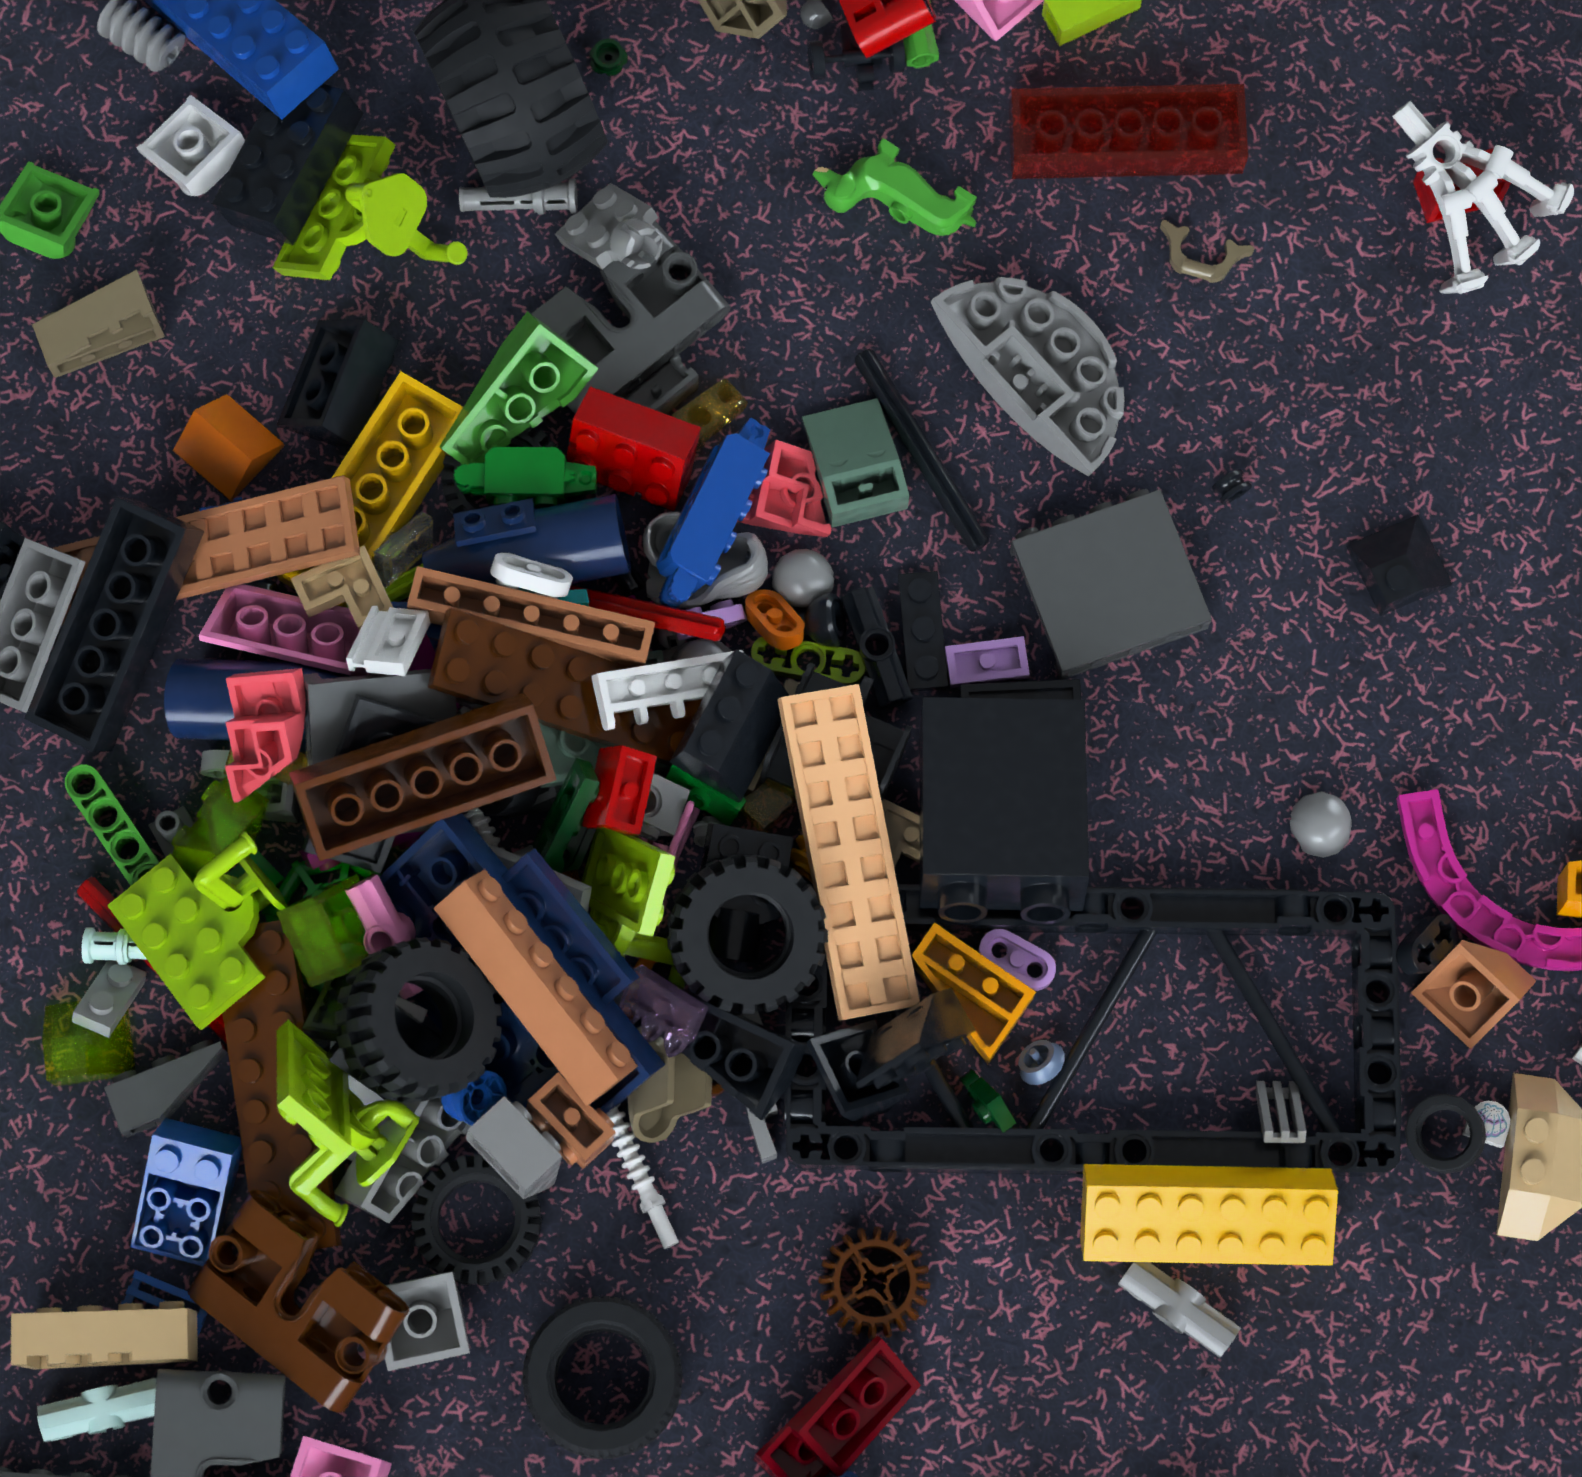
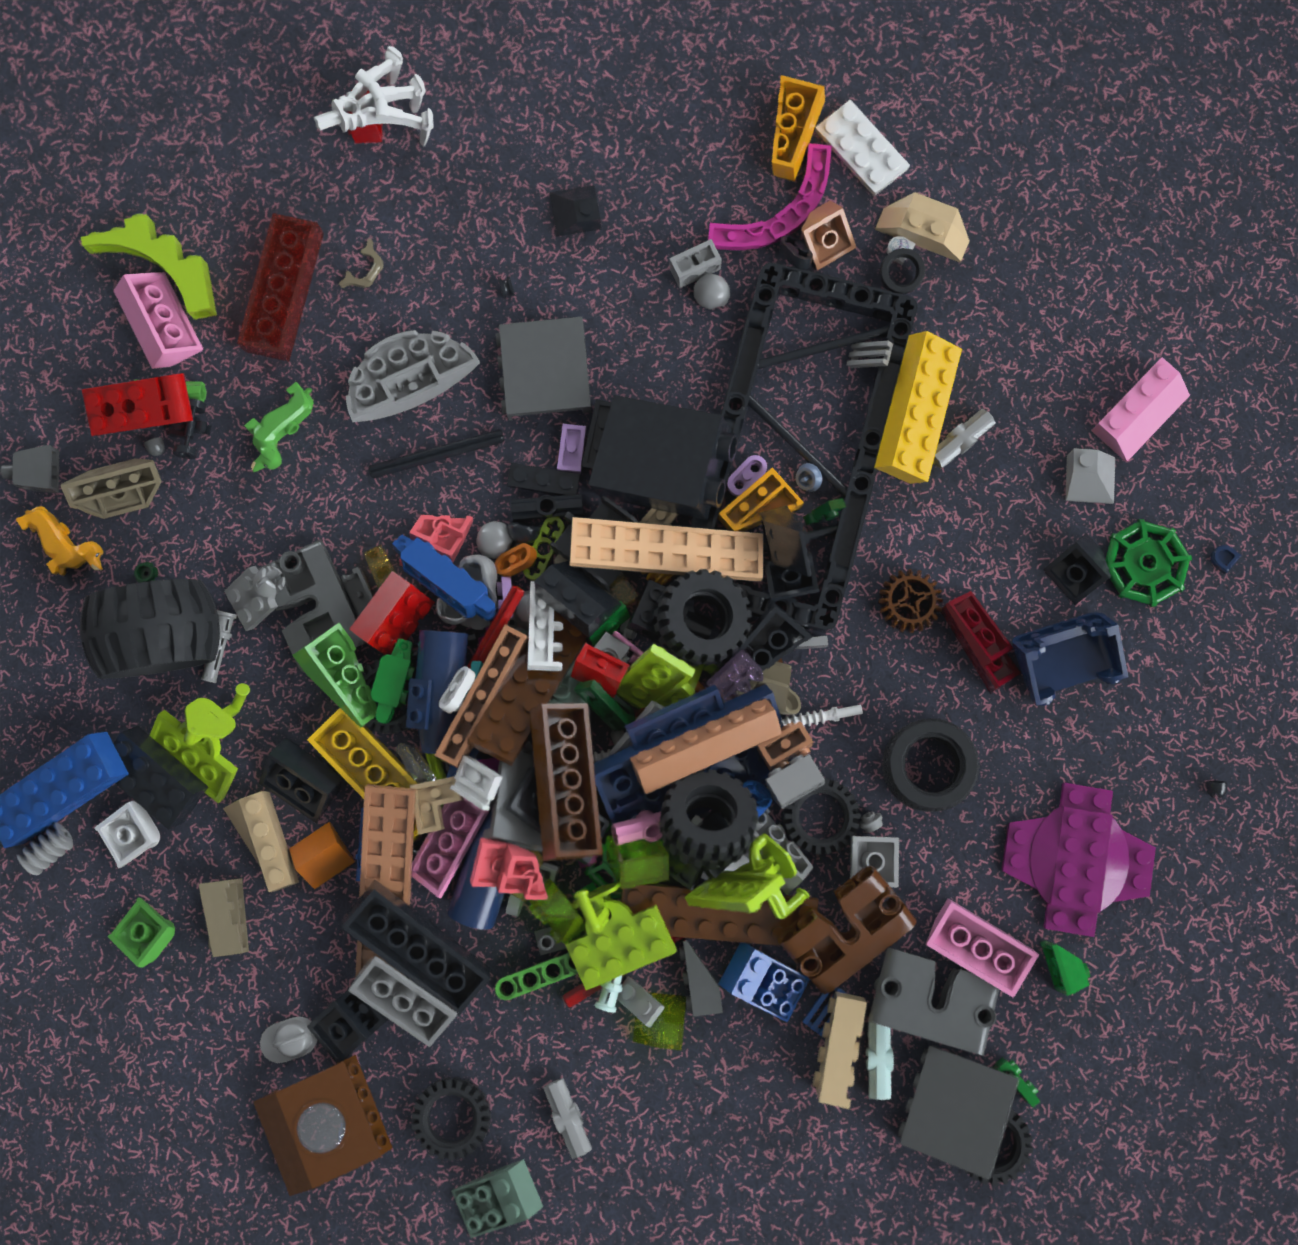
camera: 65 degrees left, 5 degrees up
(242, 346) = (262, 833): none -> tan wedge
(487, 1304) = (871, 821): none -> light grey plate
(856, 462) = (434, 490): sand green slope -> none
(1357, 781) = (695, 263): none -> light grey brick

